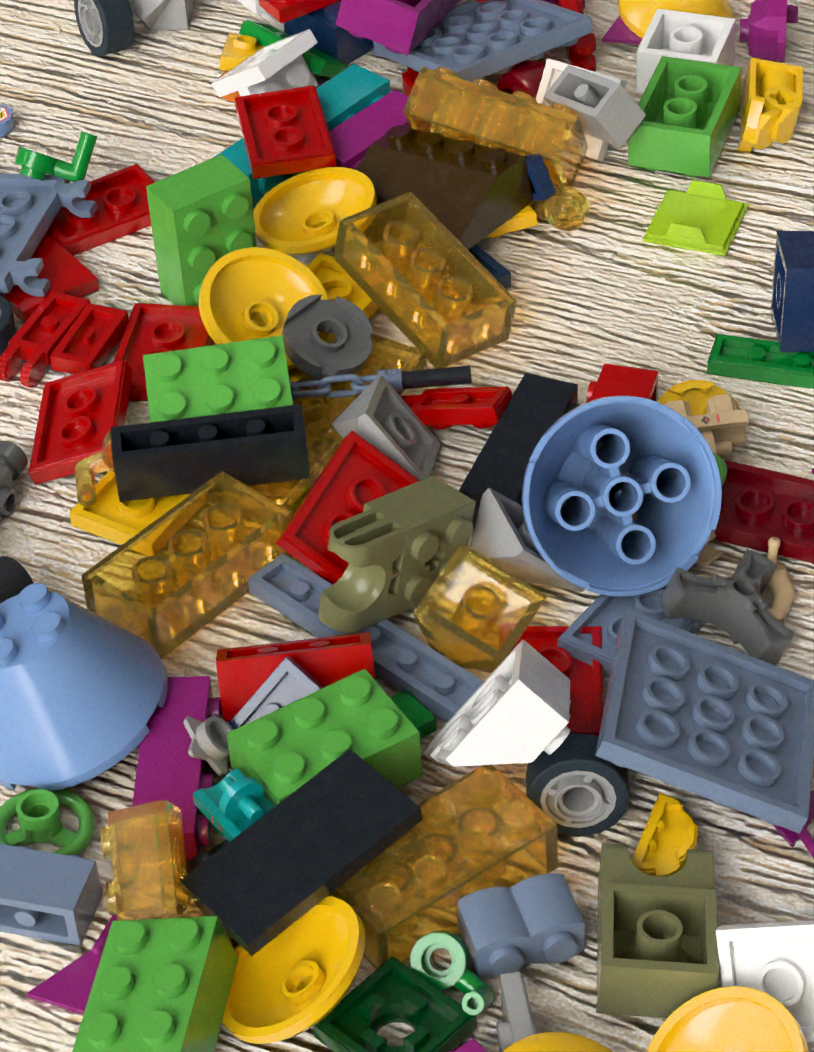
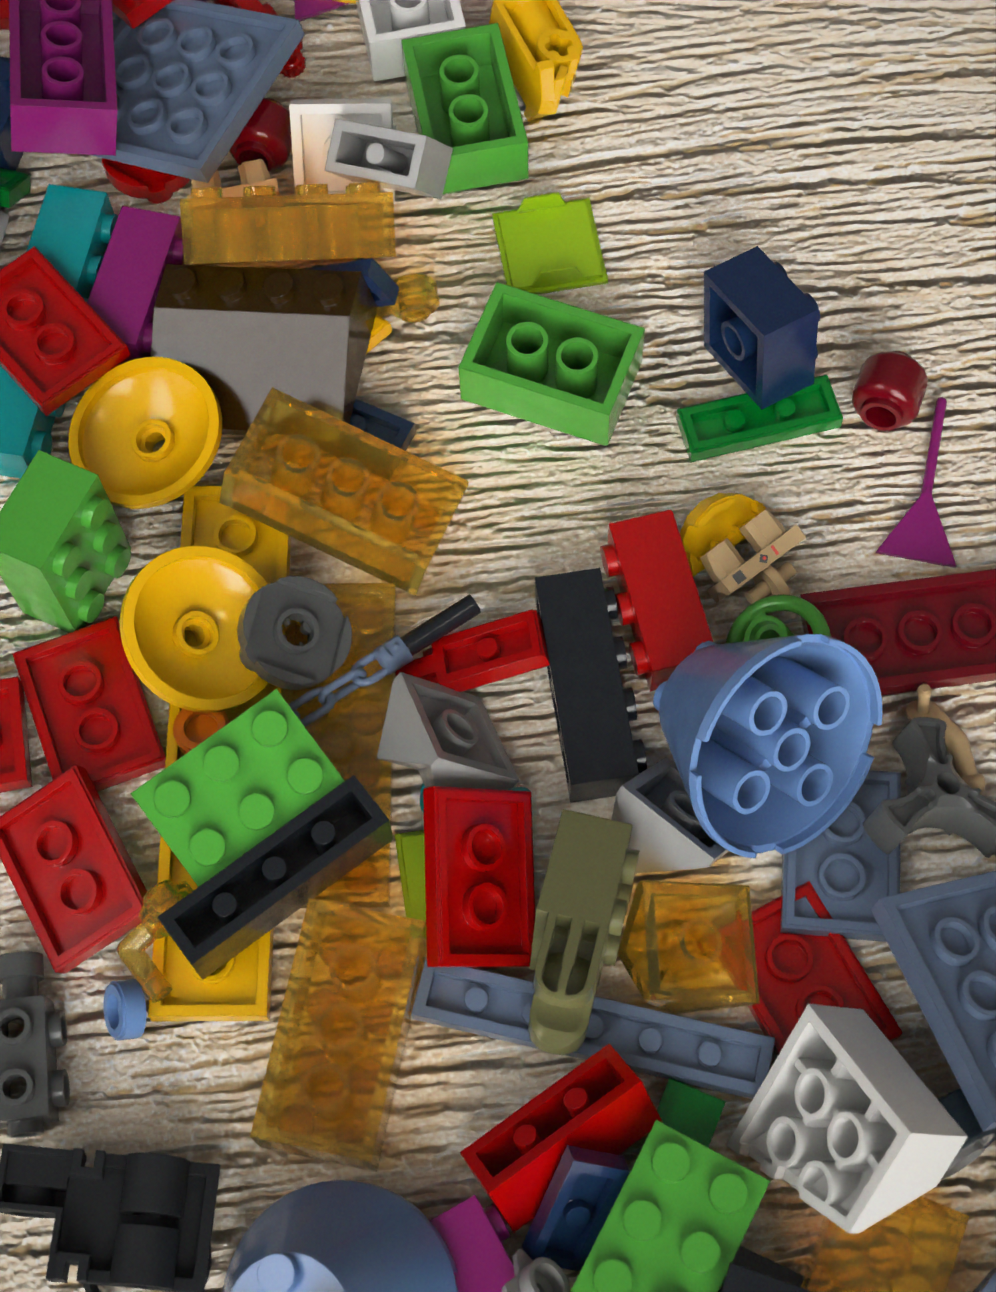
camera: 30 degrees left, 25 degrees up
(56, 504) = (125, 1009): none -> medium blue tile
(636, 270) = (551, 363): none -> bright green brick

